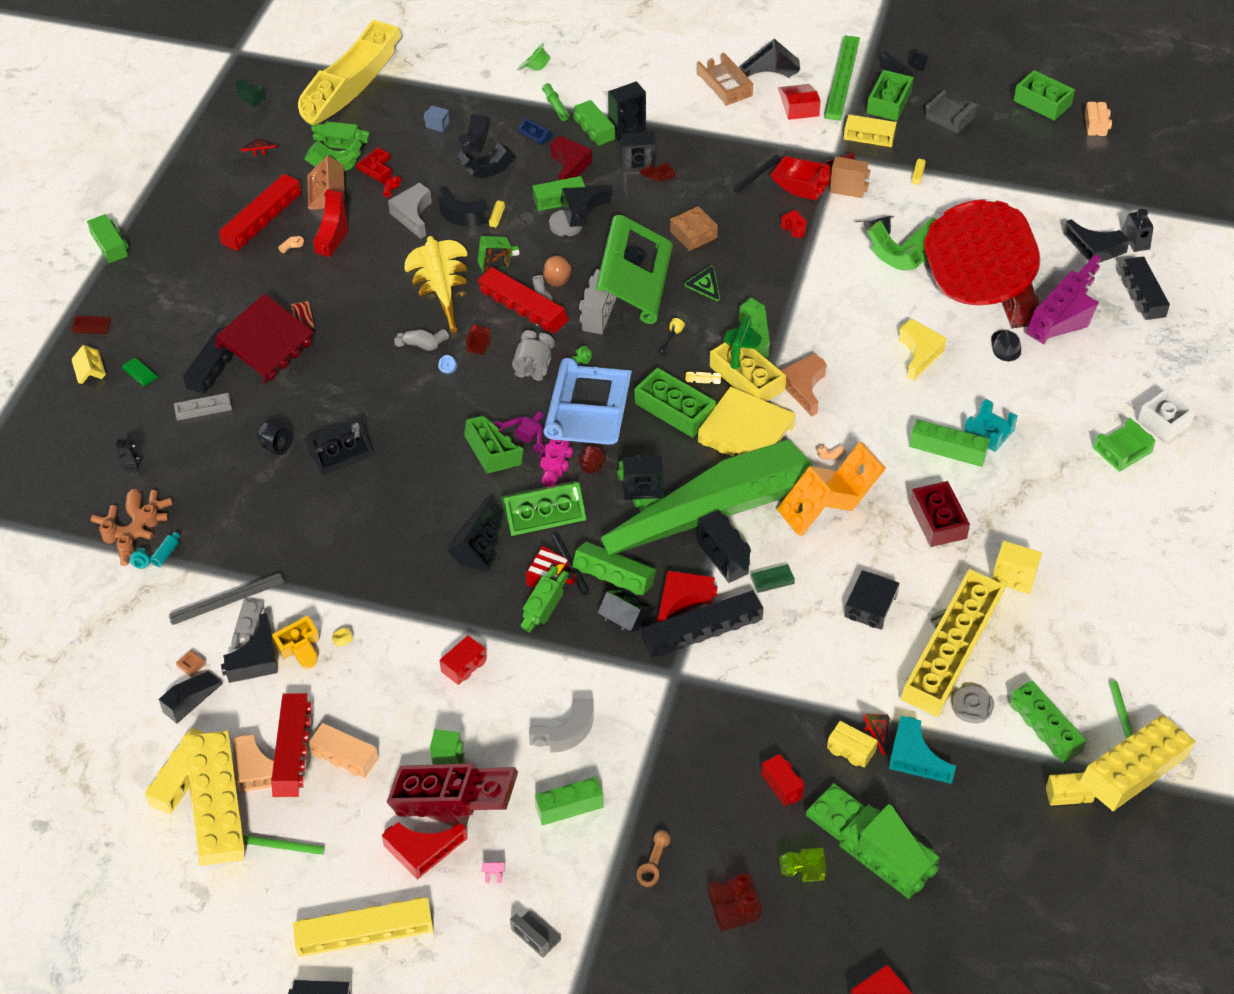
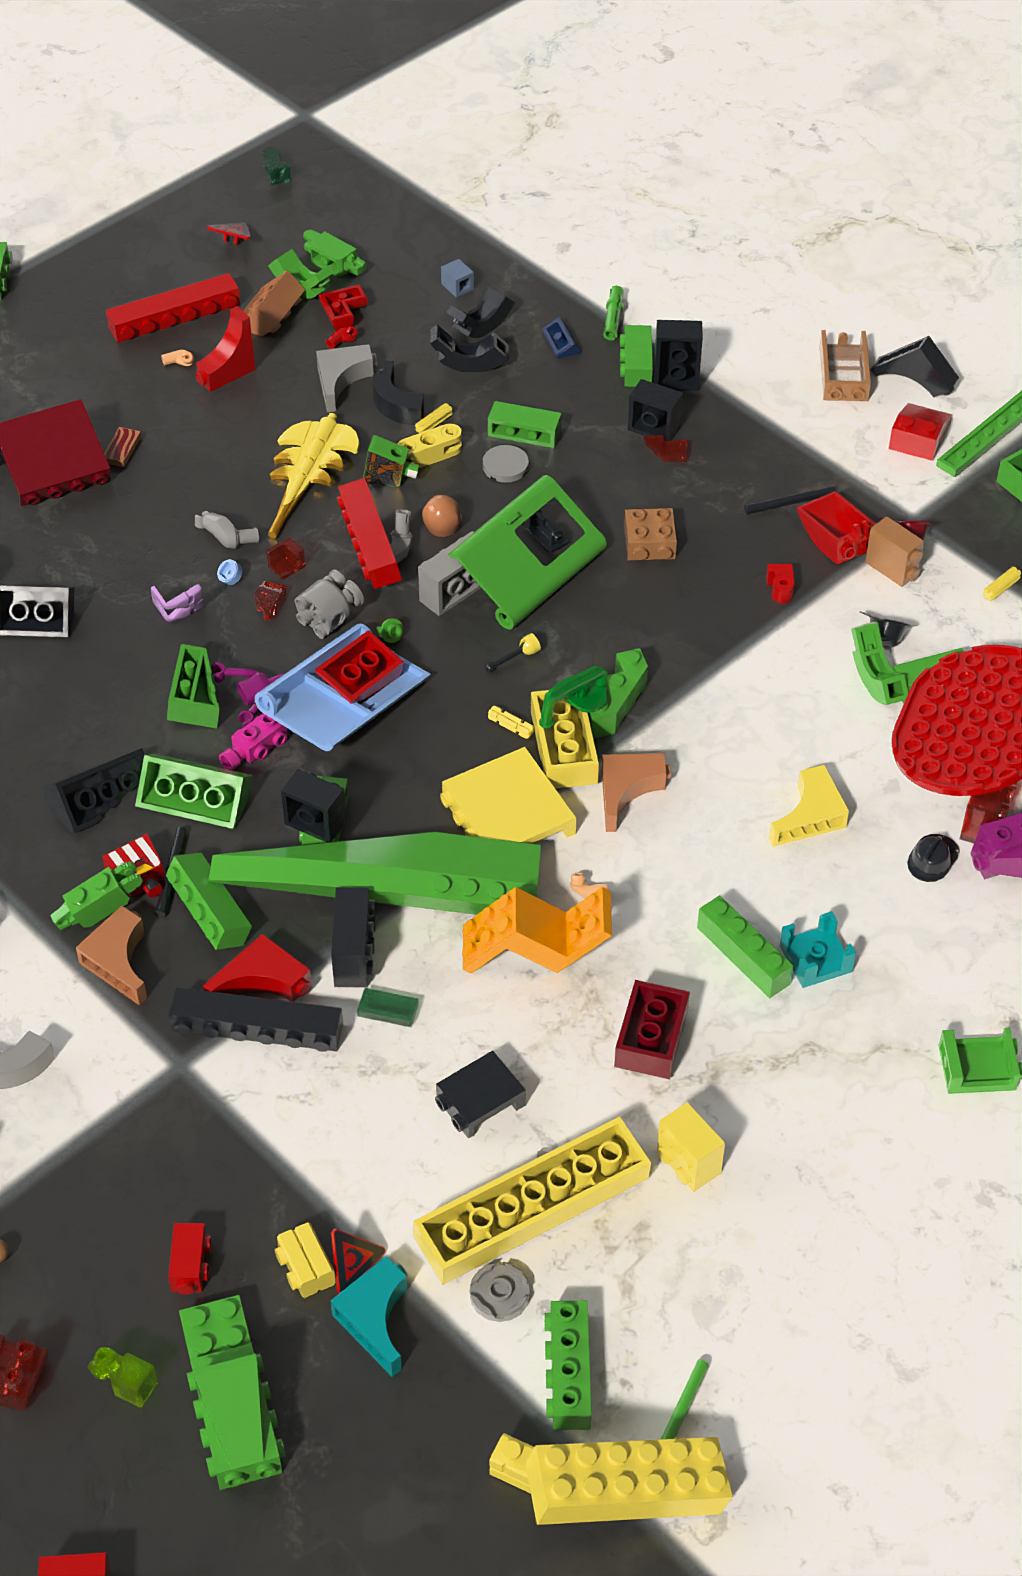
camera: 30 degrees right, 0 degrees up
(350, 74) = (396, 188): light yellow slope -> none
(436, 401) = (184, 603): none -> lavender piece
(487, 370) = (267, 598): none -> clear red slope
(514, 227) = (433, 445): none -> light yellow piece
(537, 60) = (632, 254): bright green piece -> none
(571, 156) = (576, 389): dark red arch -> none
(580, 200) = (539, 443): black arch -> none
(580, 632) = (109, 952): none -> nougat arch
(592, 383) = (361, 668): none -> red slope
(592, 459) = (294, 757): clear red head -> none
(625, 610) = (182, 956): slope -> none
(674, 402) = (443, 732): bright green brick -> none
(705, 284) = (605, 607): black piece -> none
(870, 130) = (978, 504): light yellow brick -> none

